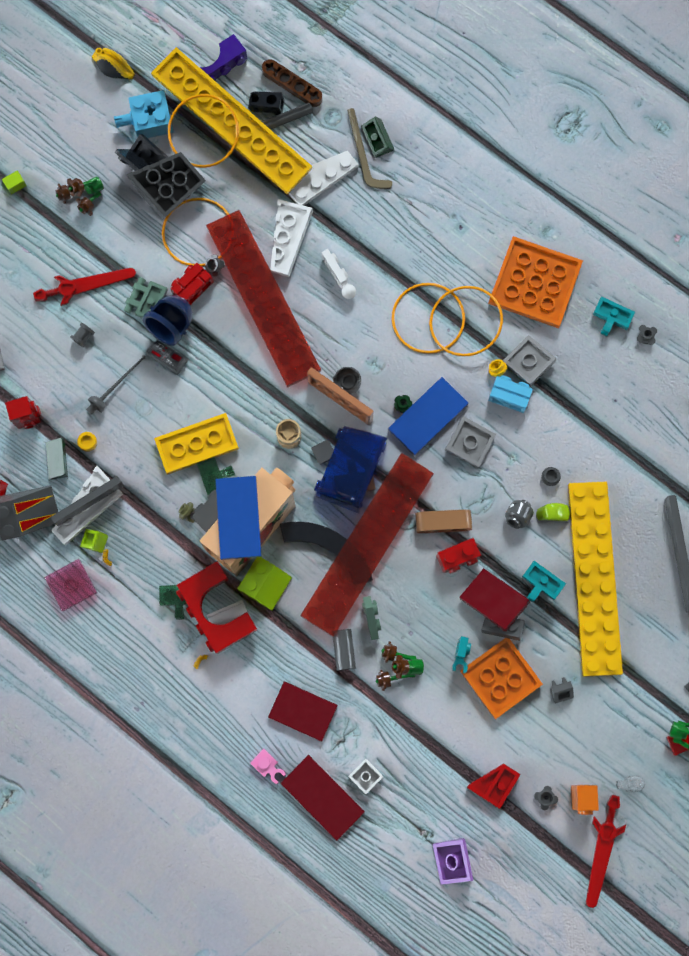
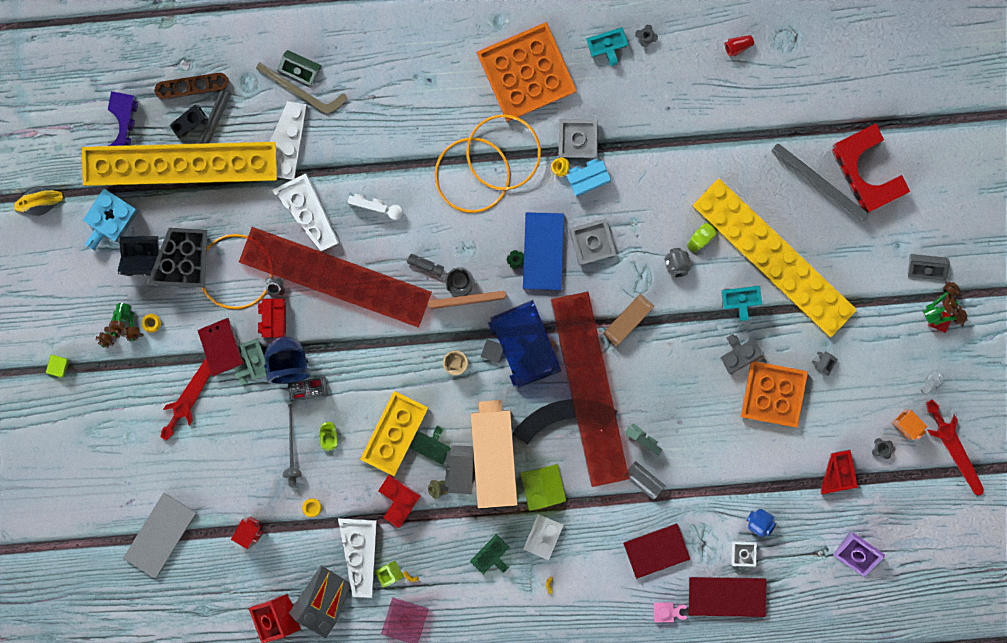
camera: 45 degrees left, 10 degrees up
(56, 459) = (302, 541): slope -> none
(82, 334) = (229, 433): dark grey bush -> none
(87, 501) = (359, 551): dark grey tile -> none
(105, 207) = (145, 325): none -> yellow plate
(135, 270) = (220, 347): none -> dark red container
(148, 401) = (328, 436): none -> lime hair
(156, 495) = (403, 498): none -> red brick
(193, 592) = (549, 556): red arch -> none
(233, 113) = (169, 157): light orange piece -> none
(238, 517) = (490, 465): blue tile -> none
(334, 348) = (425, 265): none -> dark grey axle
(401, 765) = (761, 523): none -> blue head
(404, 666) = (697, 455): reddish brown plant -> none
(458, 555) = (663, 334): red brick -> none
(462, 650) = (729, 401): teal plate -> none
(494, 599) = (718, 343): dark red tile -> none
(551, 476) = (674, 212): dark grey plate -> none

